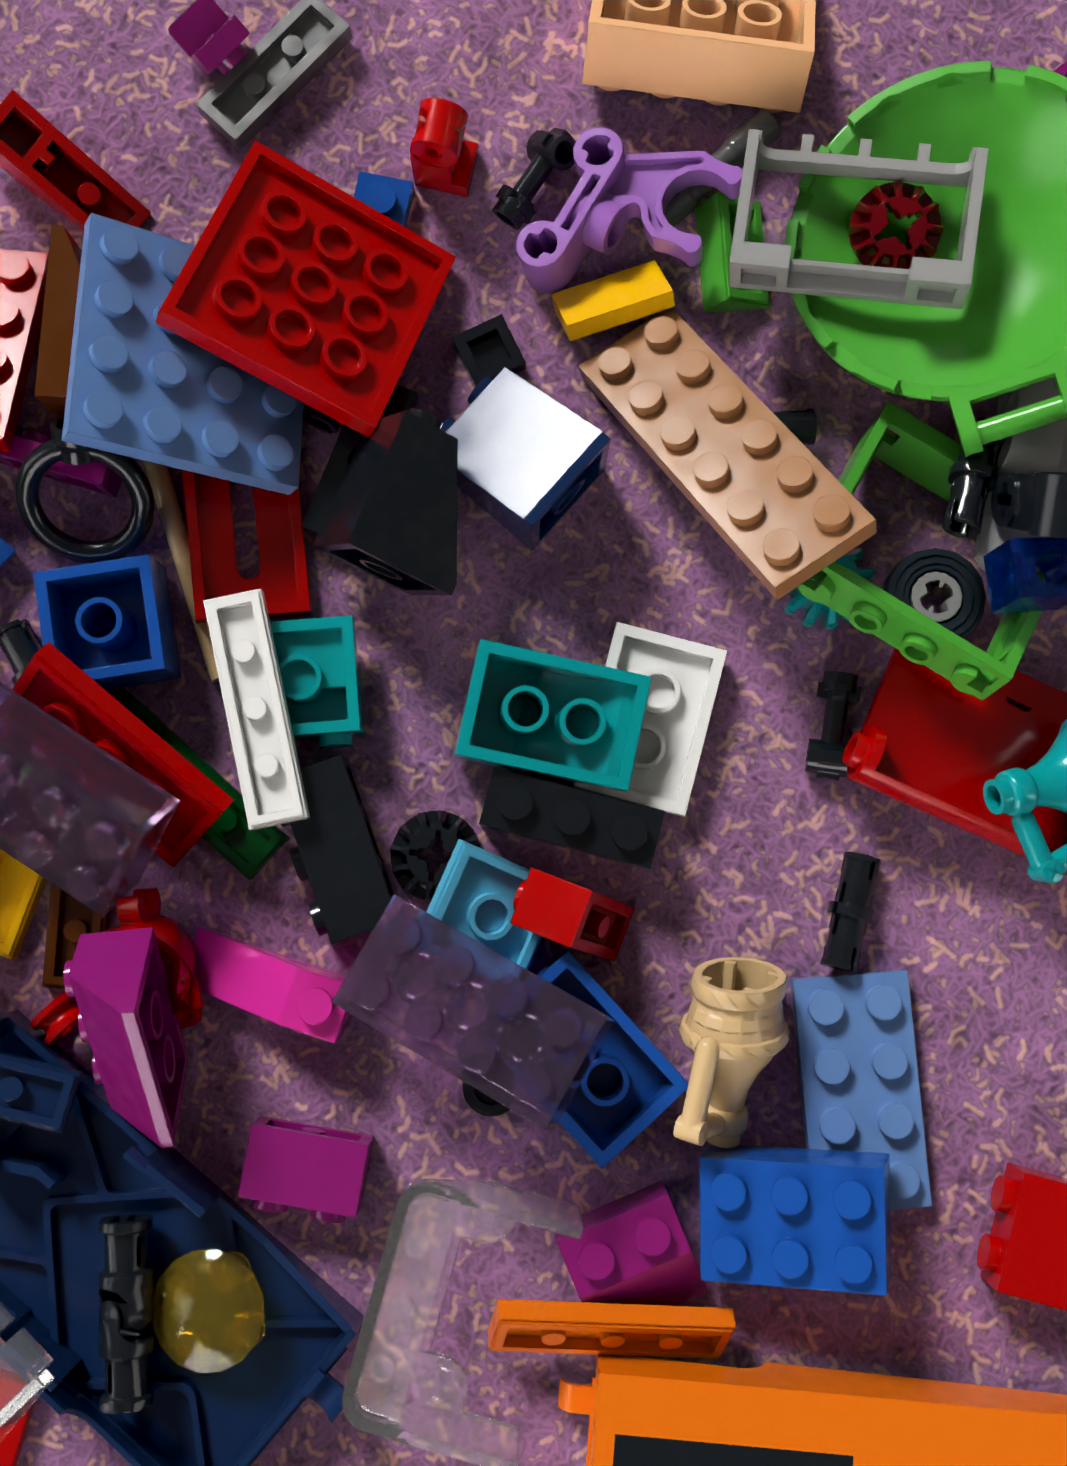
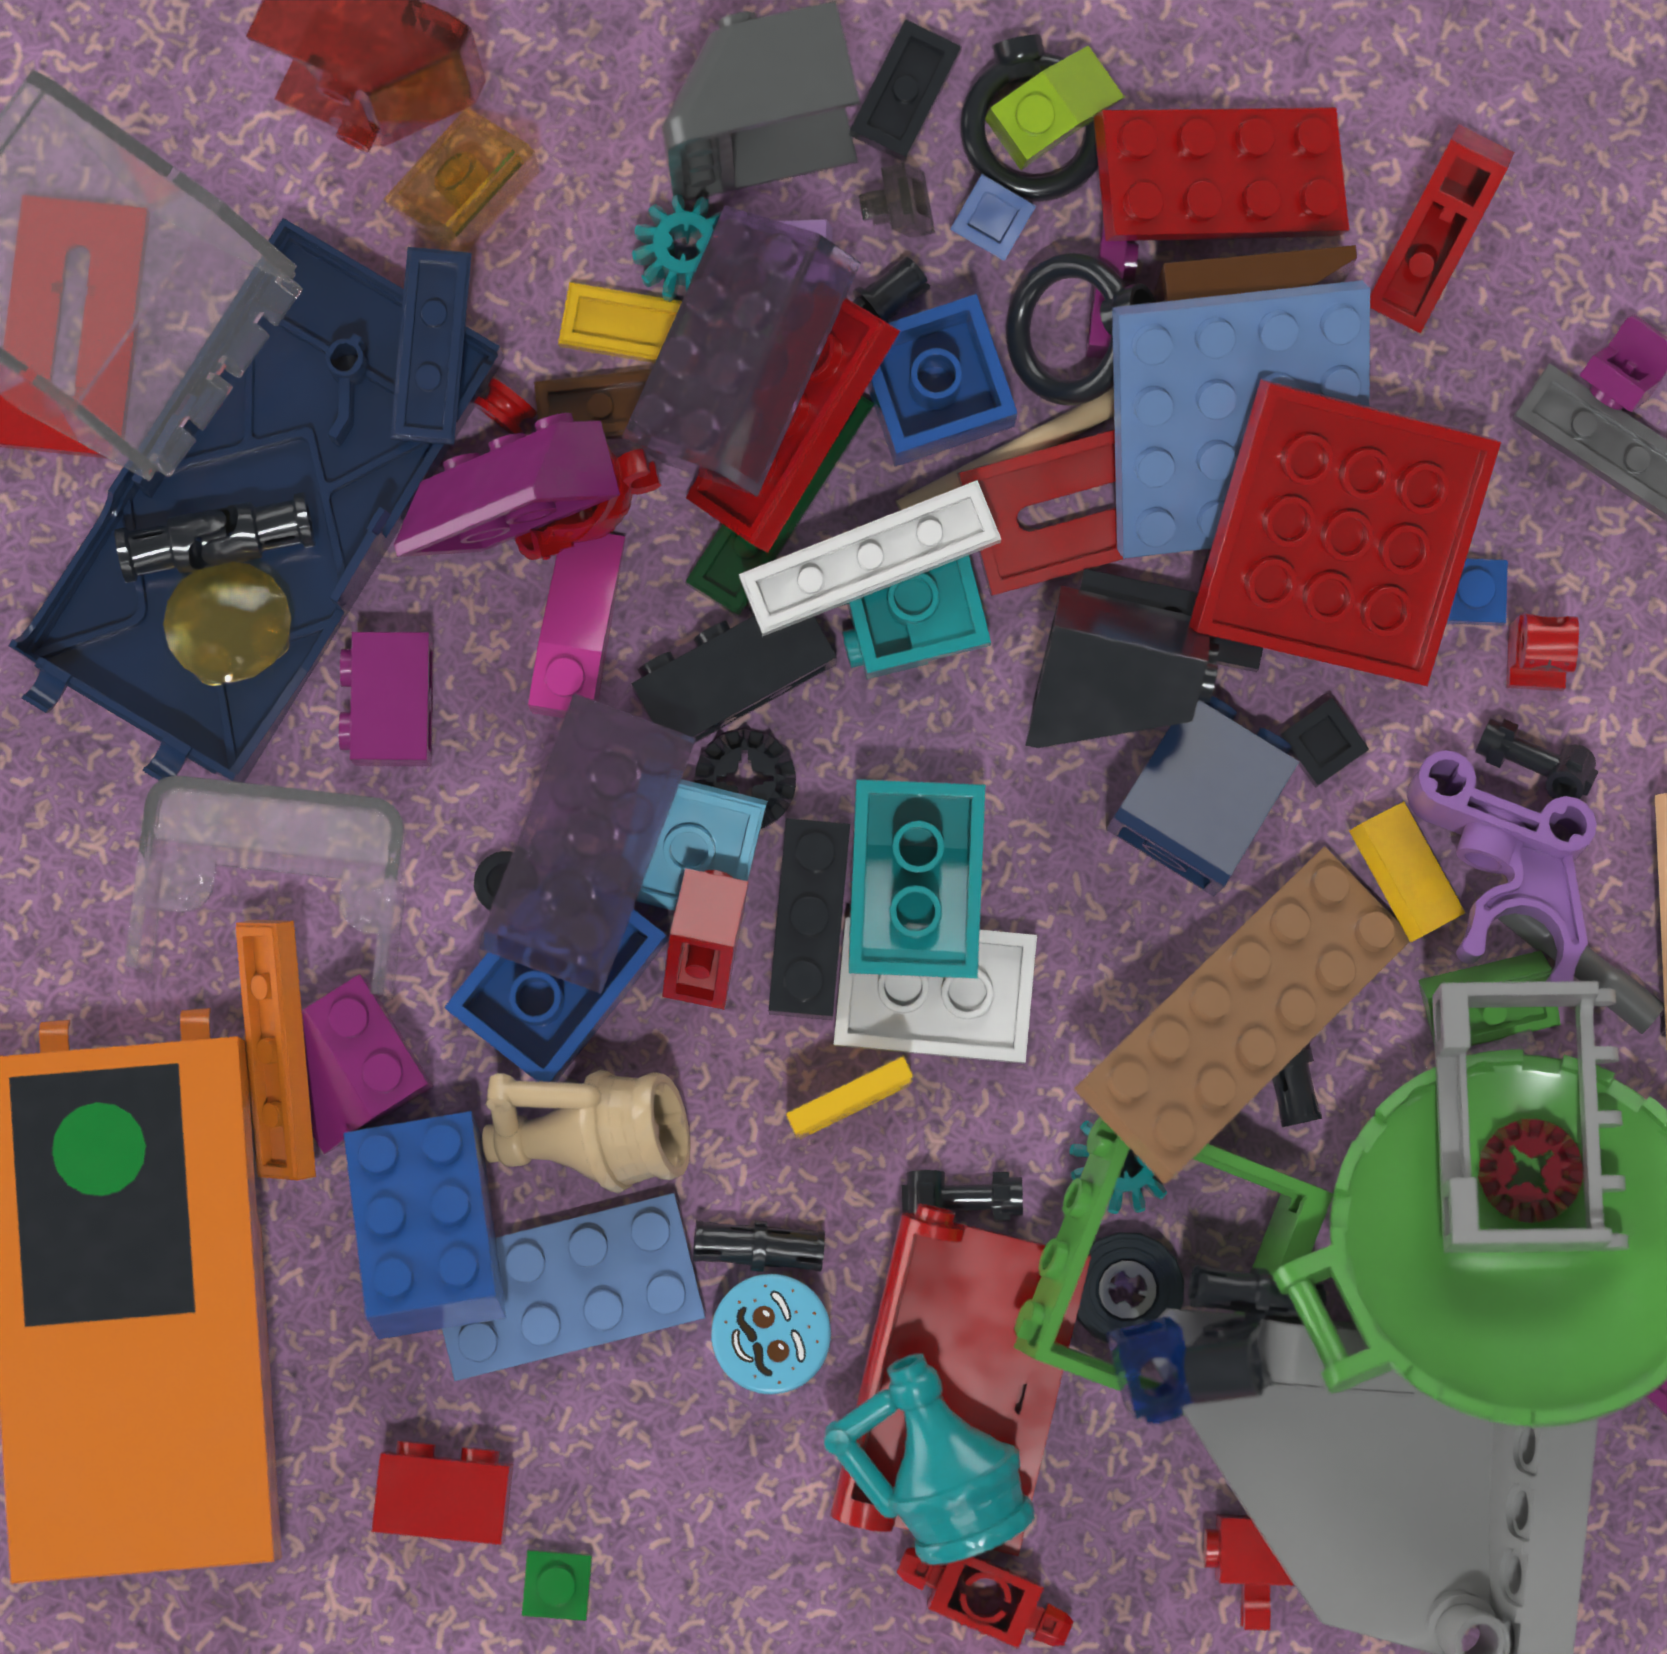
camera: 80 degrees right, 0 degrees up
(740, 808) = (850, 1098): none -> yellow tile
(931, 914) = (771, 1334): none -> medium azure head

